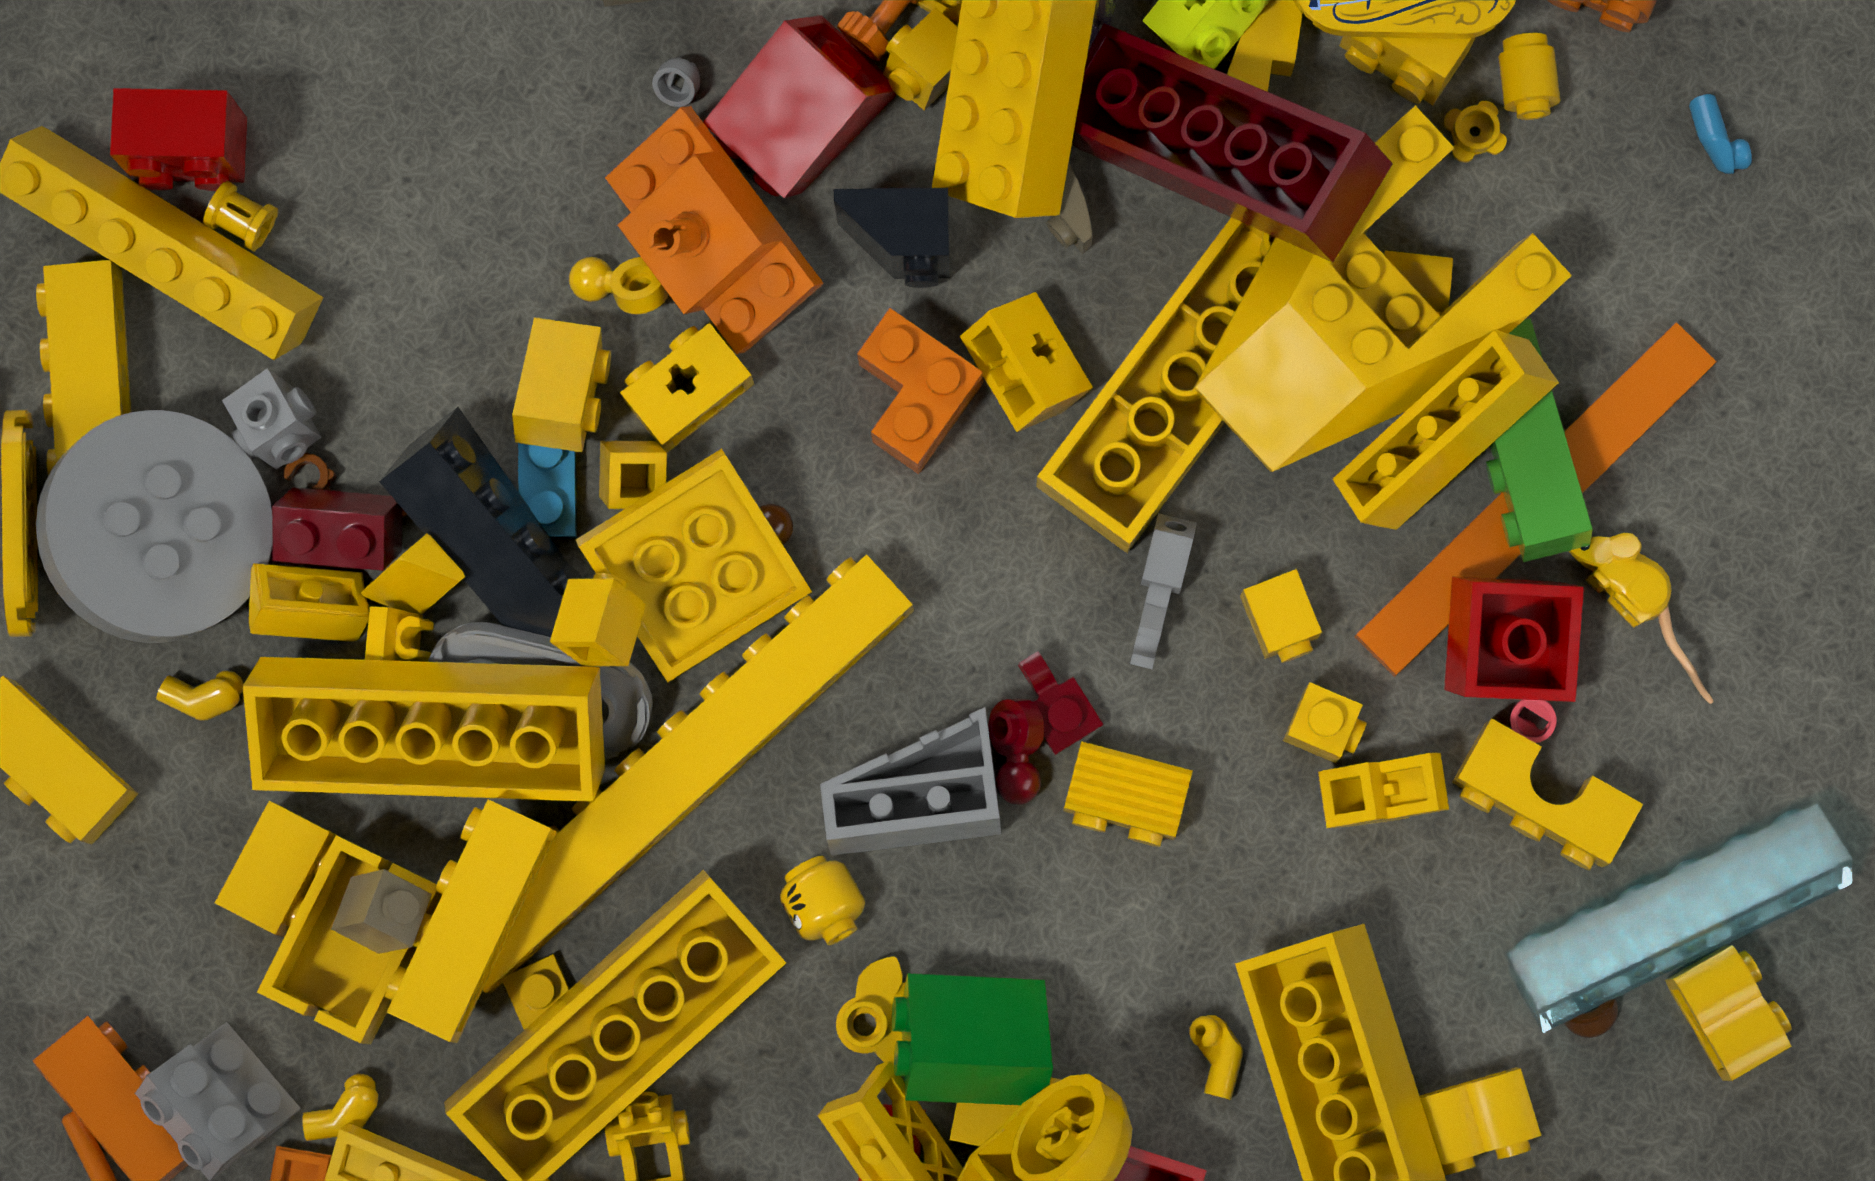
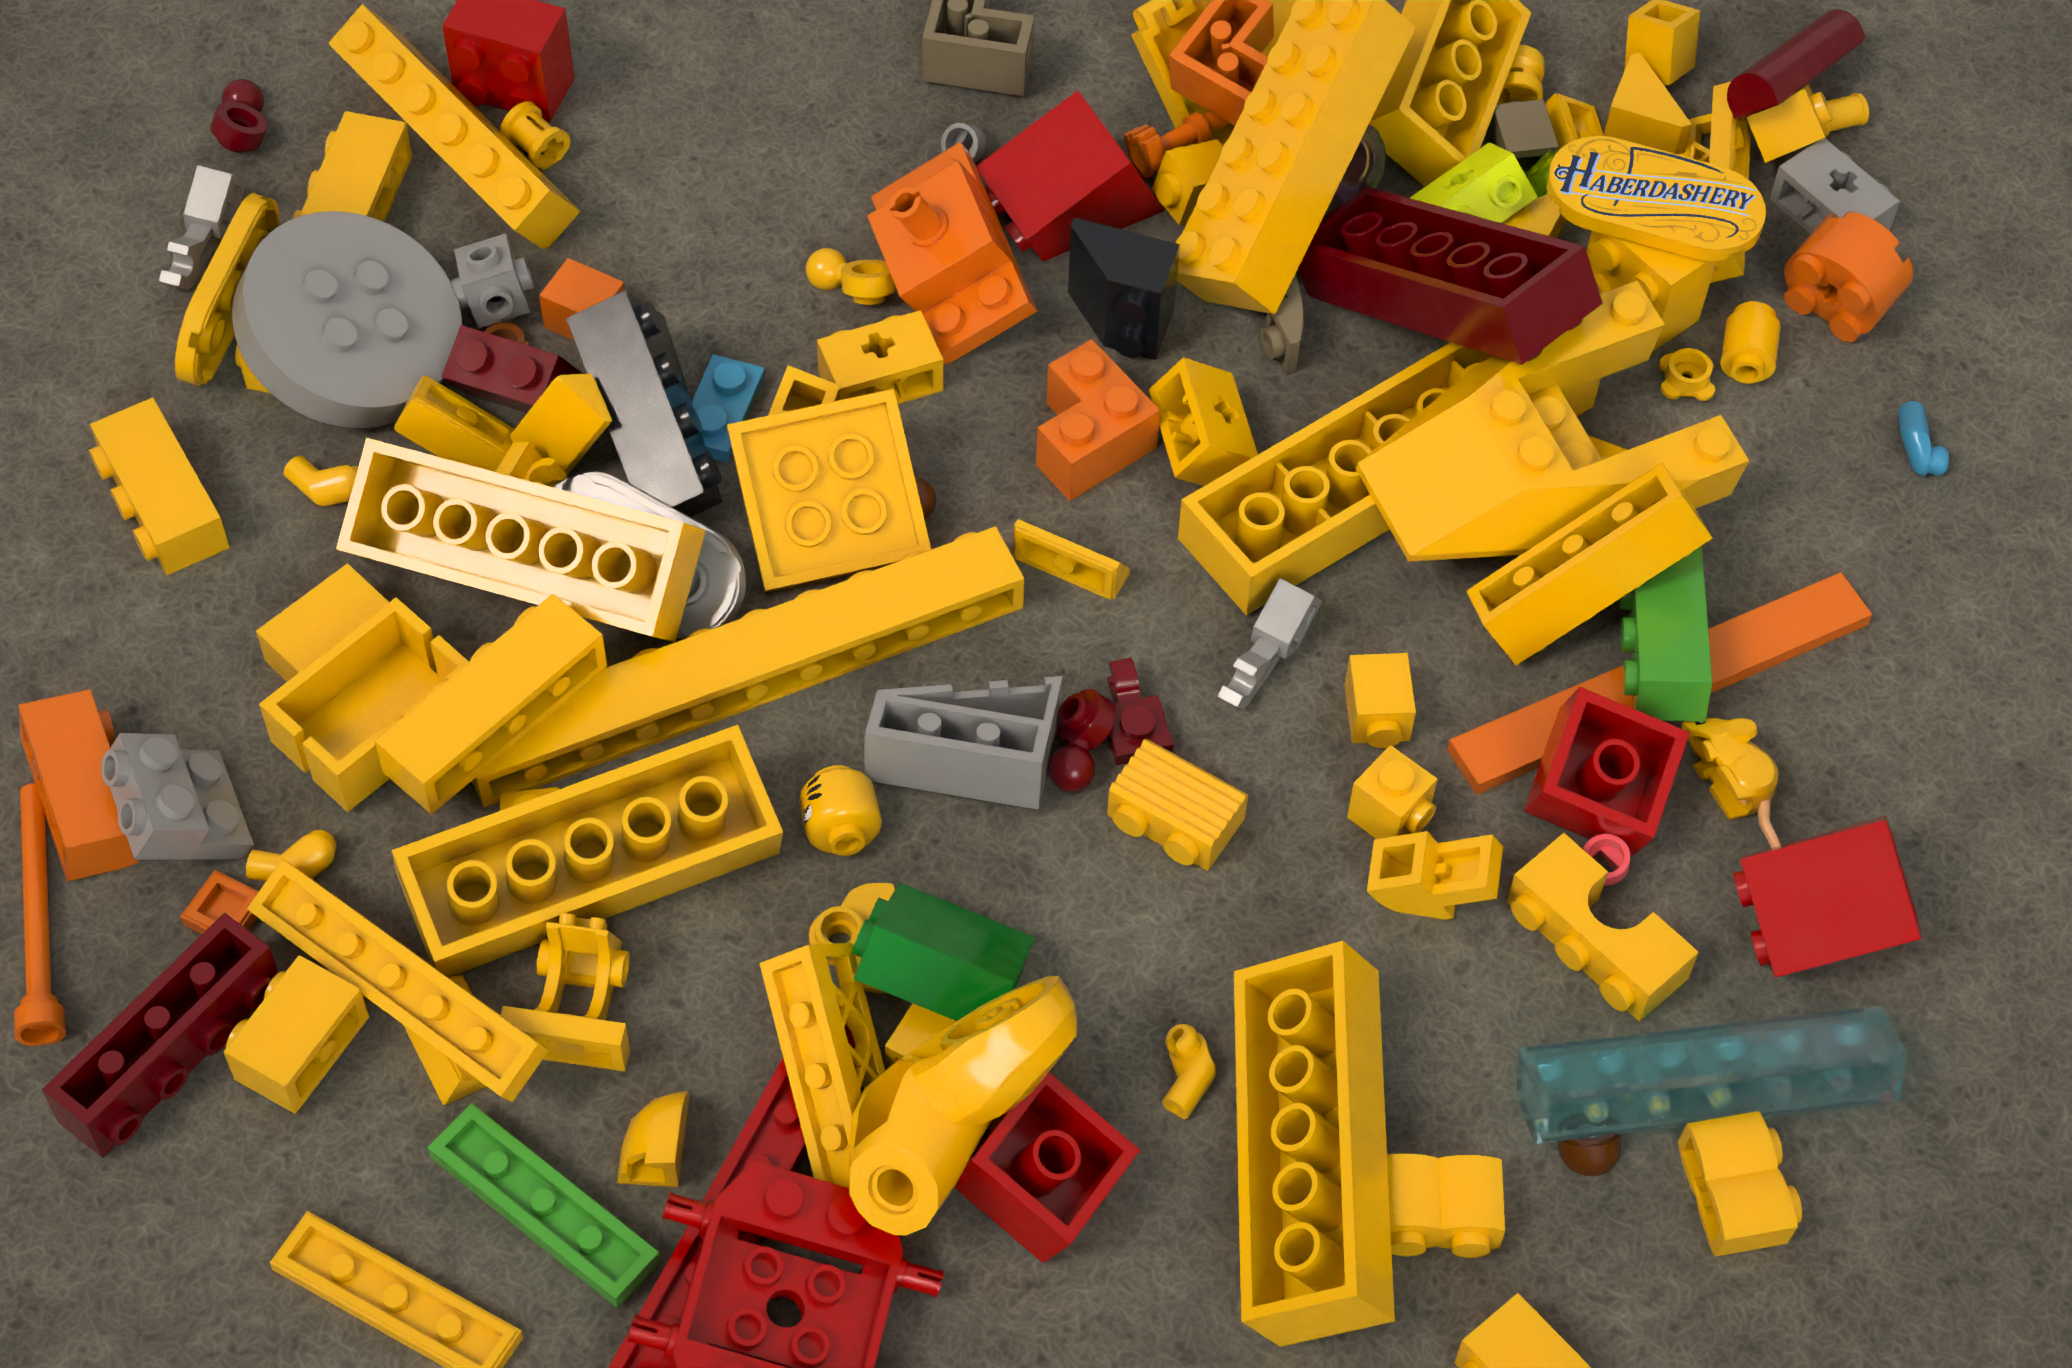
camera: 10 degrees right, 25 degrees down
(373, 412) = (572, 291): none -> orange brick
(381, 911) = (409, 665): dark tan brick -> none
(559, 385) = (763, 324): yellow brick -> none
(598, 621) = (719, 484): yellow brick -> none
(942, 544) = (1068, 560): none -> yellow slope
(1750, 707) = (1828, 897): none -> red slope

